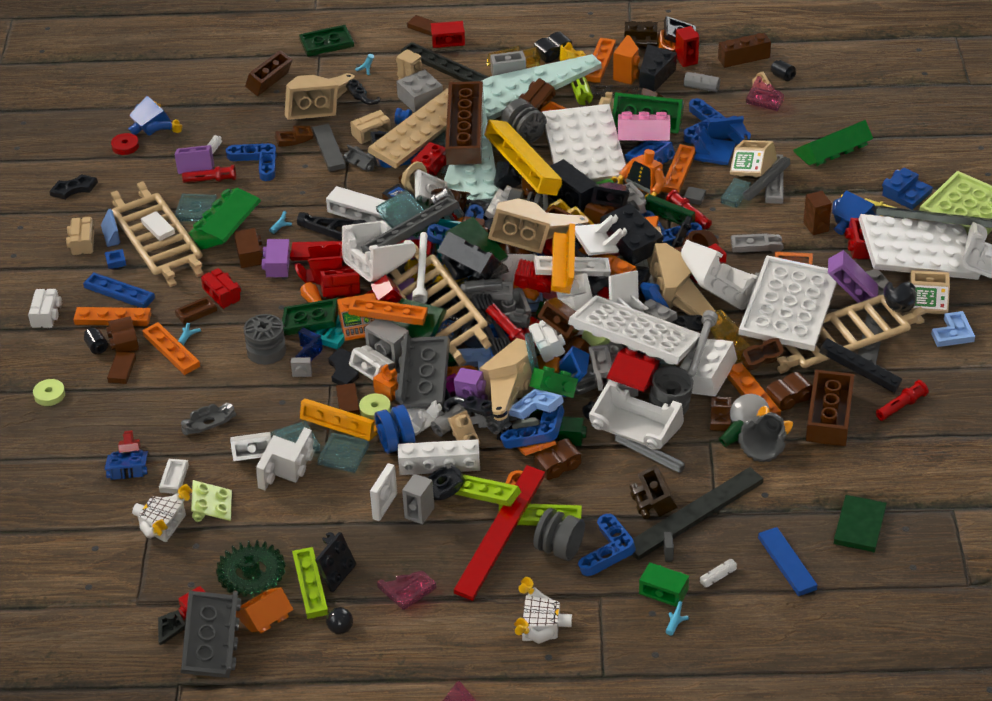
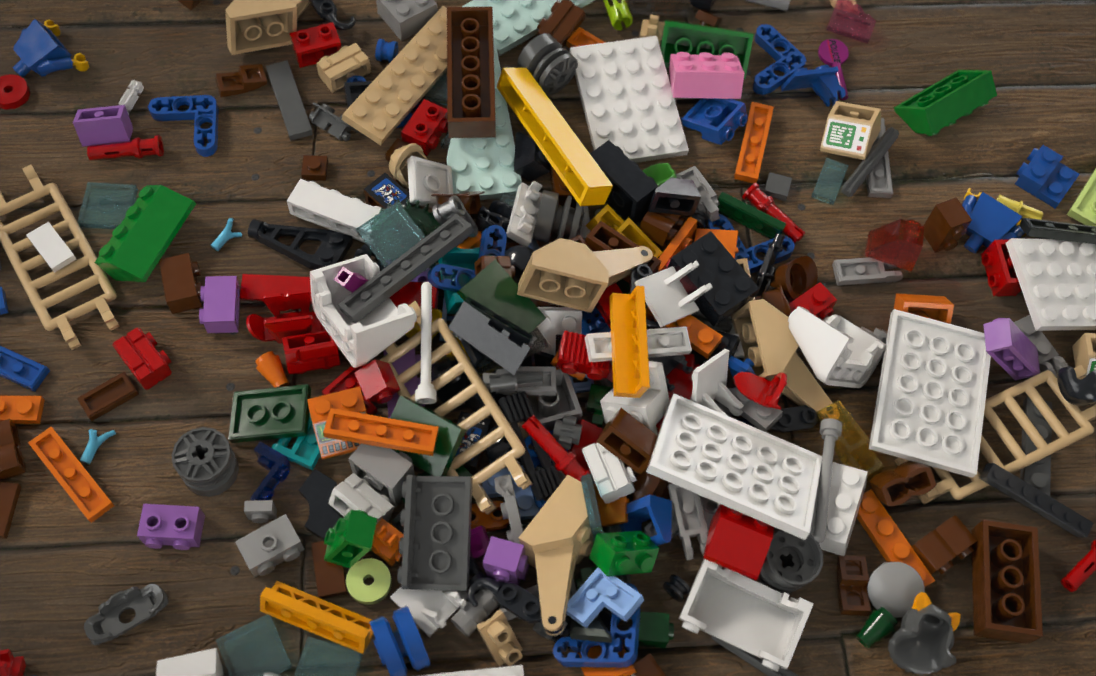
camera: 10 degrees left, 20 degrees up
(240, 374) = (171, 526): none -> medium lavender brick
(307, 384) = (270, 546): none -> light grey brick
(347, 183) = (314, 168): none -> reddish brown plate
(348, 111) = (315, 43): none -> red brick
(363, 374) = (350, 538): none -> green brick
(369, 232) = (350, 280): none -> magenta piece
(473, 351) = (509, 508): none -> light grey hinge
(643, 173) = (713, 156): torso -> none
(659, 297) = (760, 389): none -> red piece
(712, 149) = (794, 108): blue plate -> none
(751, 117) = (835, 54): none -> magenta piece
(780, 224) = (896, 243): none -> clear red slope

